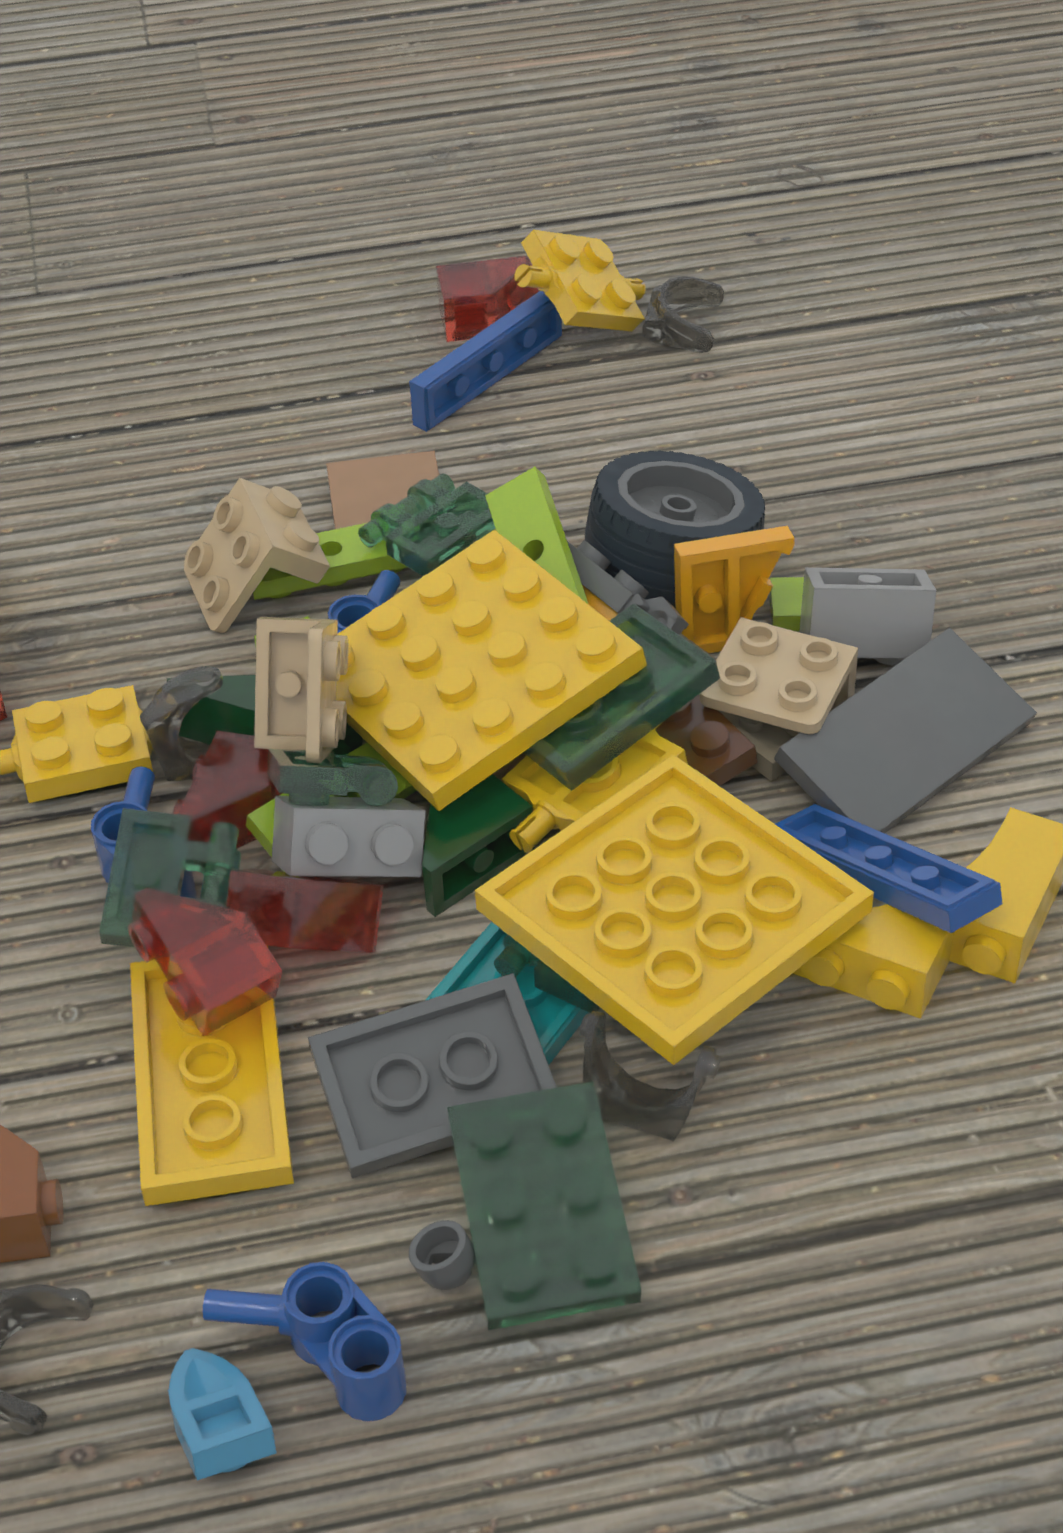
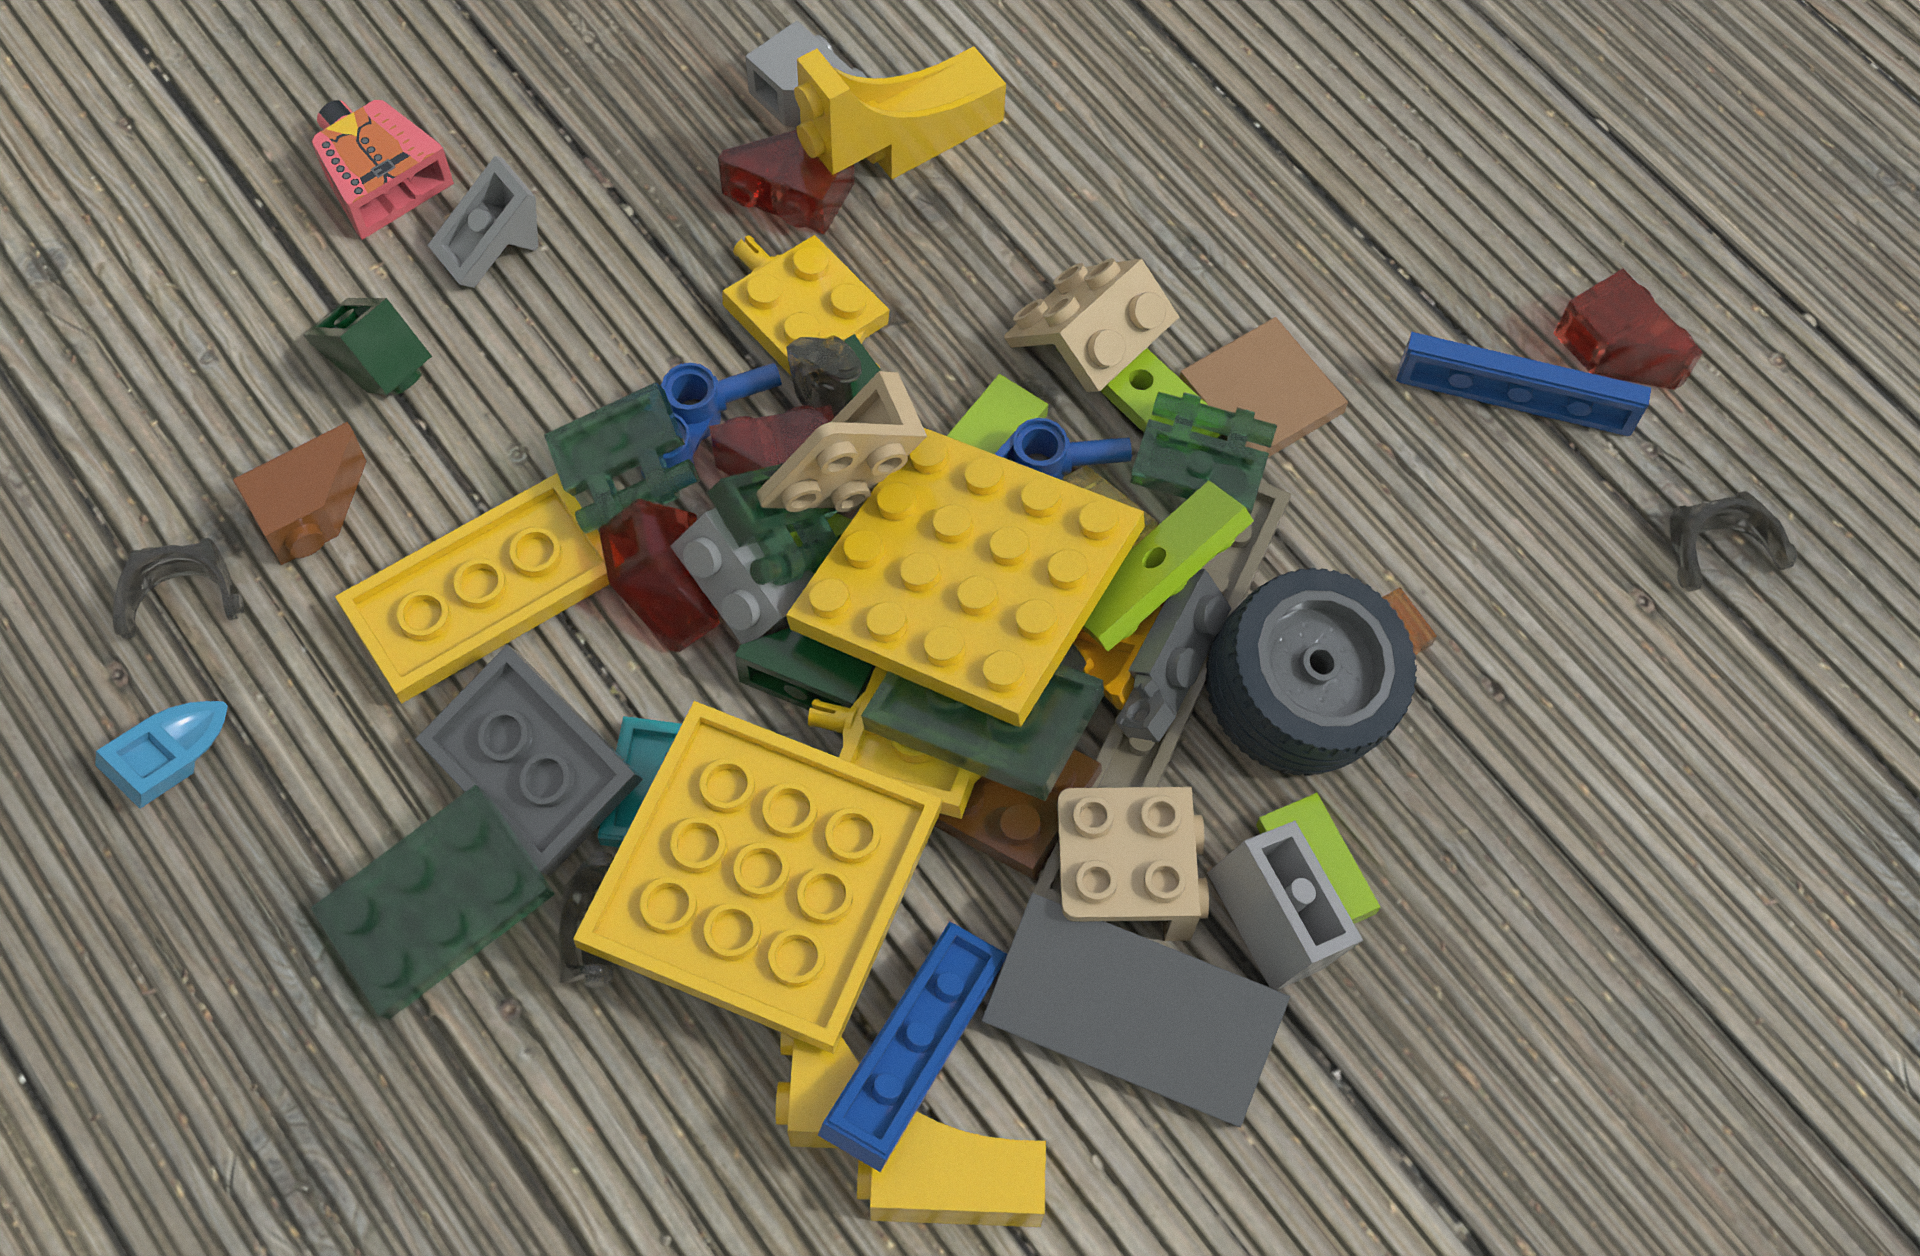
camera: 60 degrees right, 20 degrees up
(208, 955) = (543, 525): clear red slope -> none
(335, 1343) = (260, 814): blue beam -> none
(449, 1249) = (343, 848): dark grey hinge -> none
(581, 281) = (1679, 417): yellow plate -> none
(725, 581) = (1233, 753): light orange wing -> none

